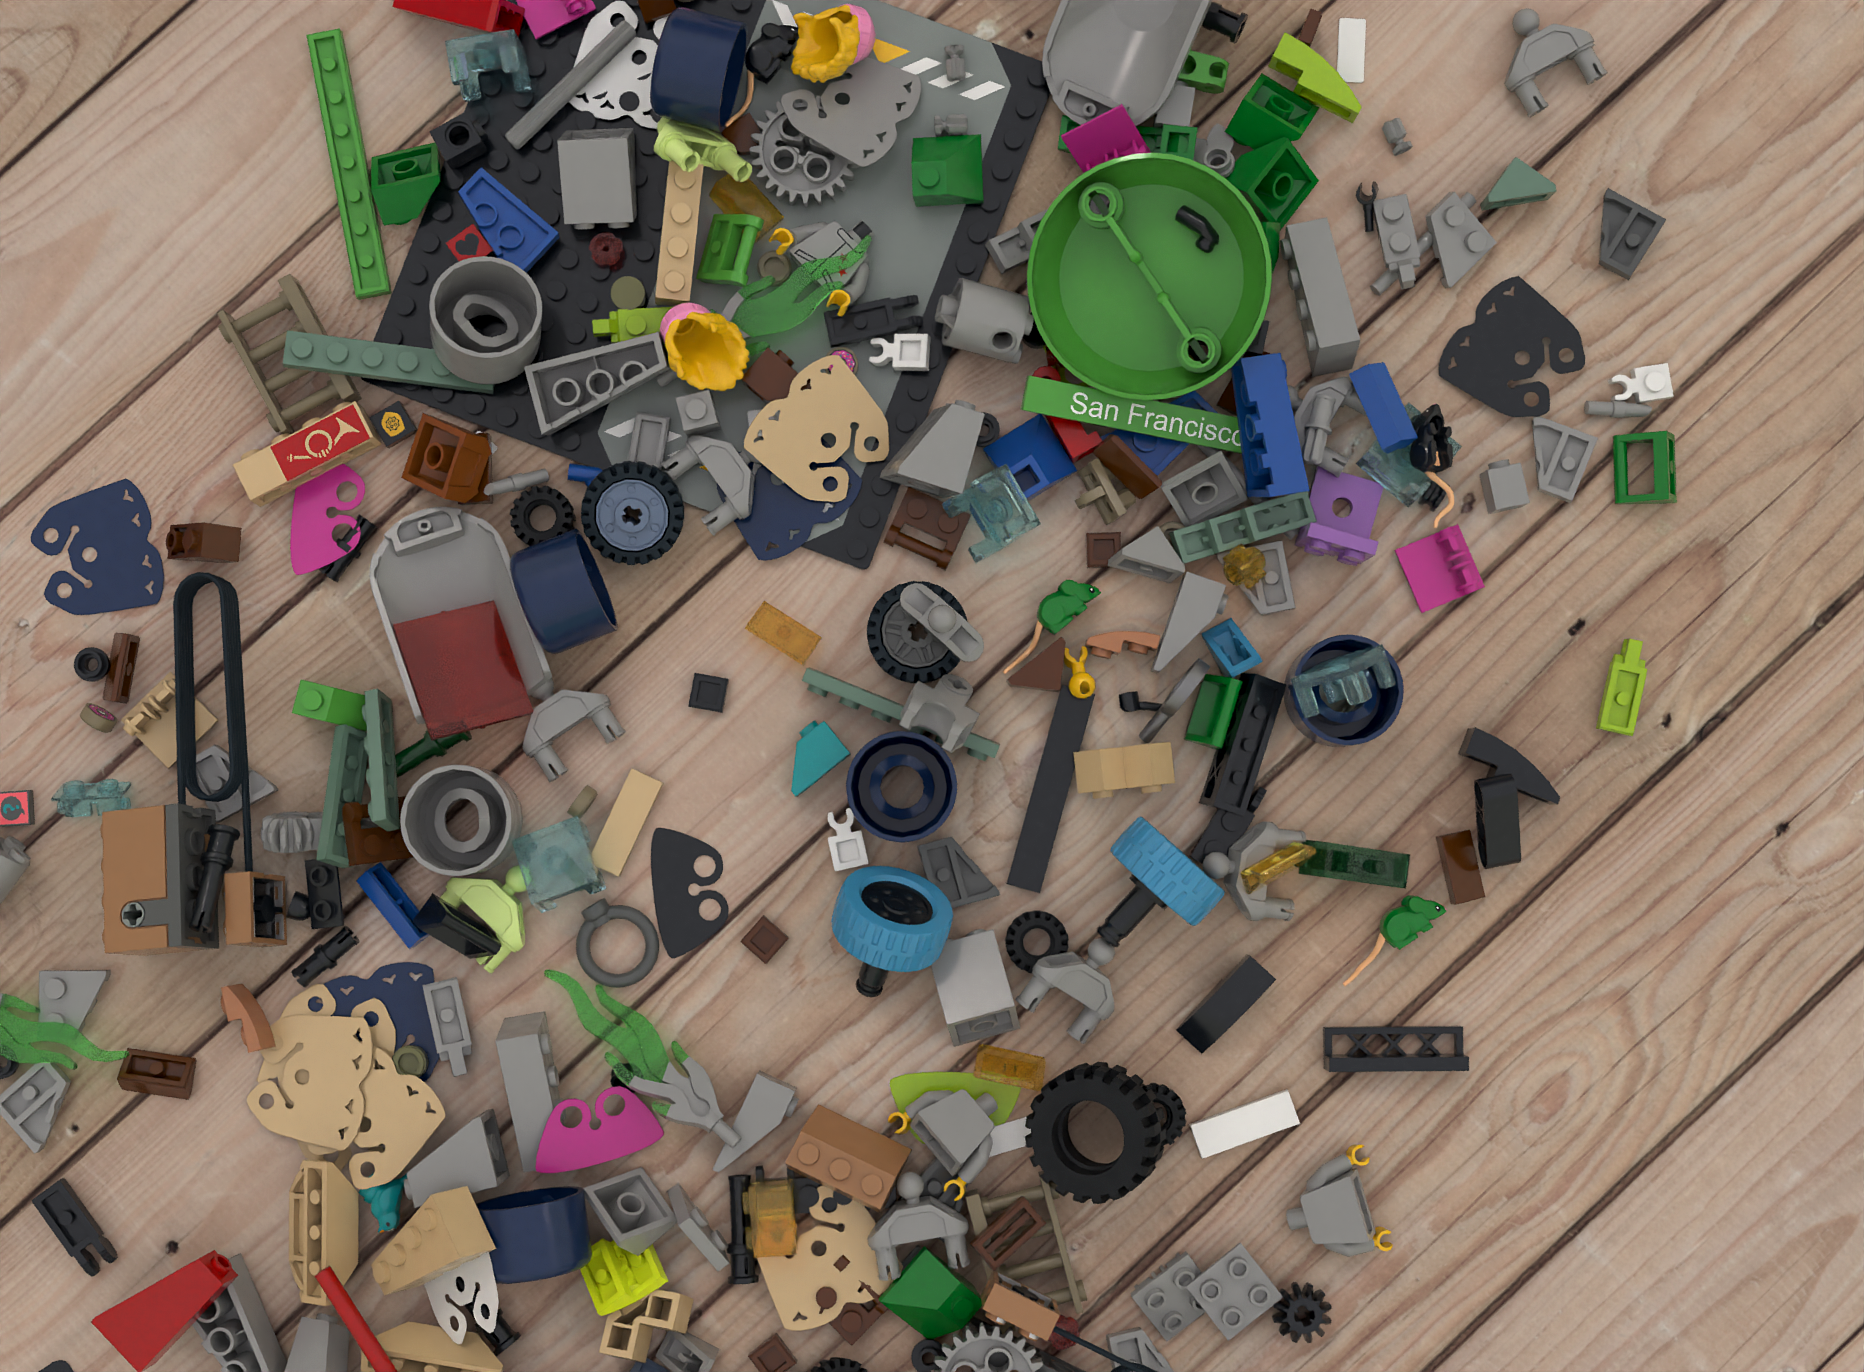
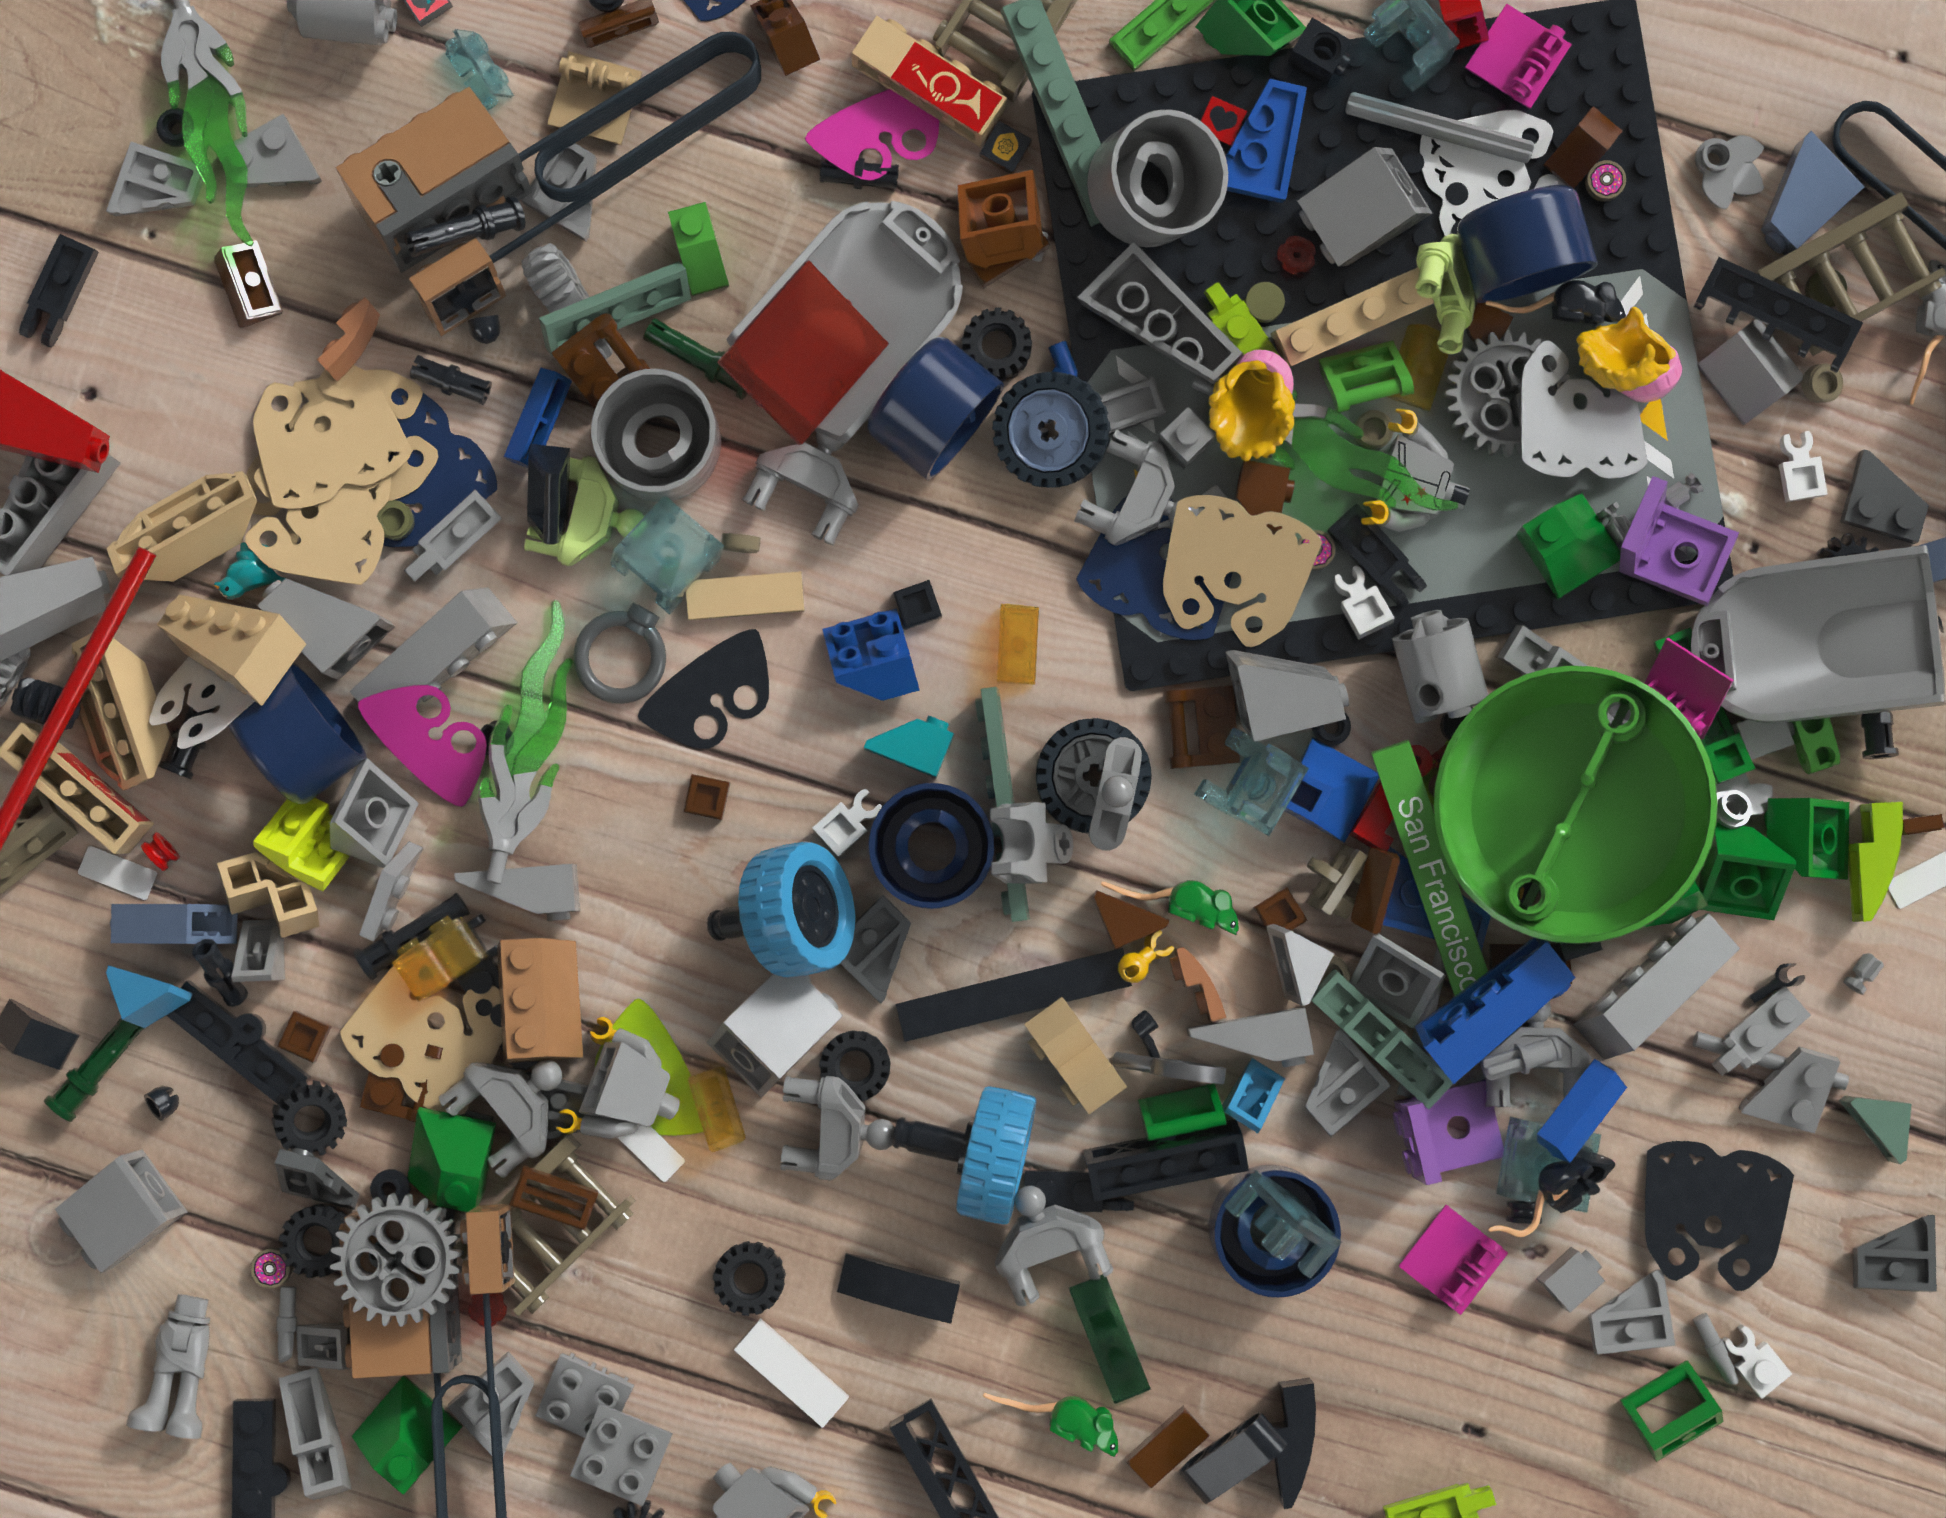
camera: 60 degrees right, 0 degrees up
(98, 718) = (558, 28): dark tan tile -> none
(324, 894) = (509, 344): black hinge -> none
(382, 763) = (678, 320): sand green plate -> none
(517, 482) = (1017, 300): light grey piece -> none
(728, 749) = (872, 656): none -> blue slope
(977, 93) = (1659, 532): none -> medium lavender bracket
(1061, 1159) = (659, 1202): black tyre -> none
(1201, 226) = (1656, 826): black arm -> none
(1244, 566) = (1343, 1062): clear yellow gear -> none
(1276, 866) = (1062, 1260): clear yellow slope -> none

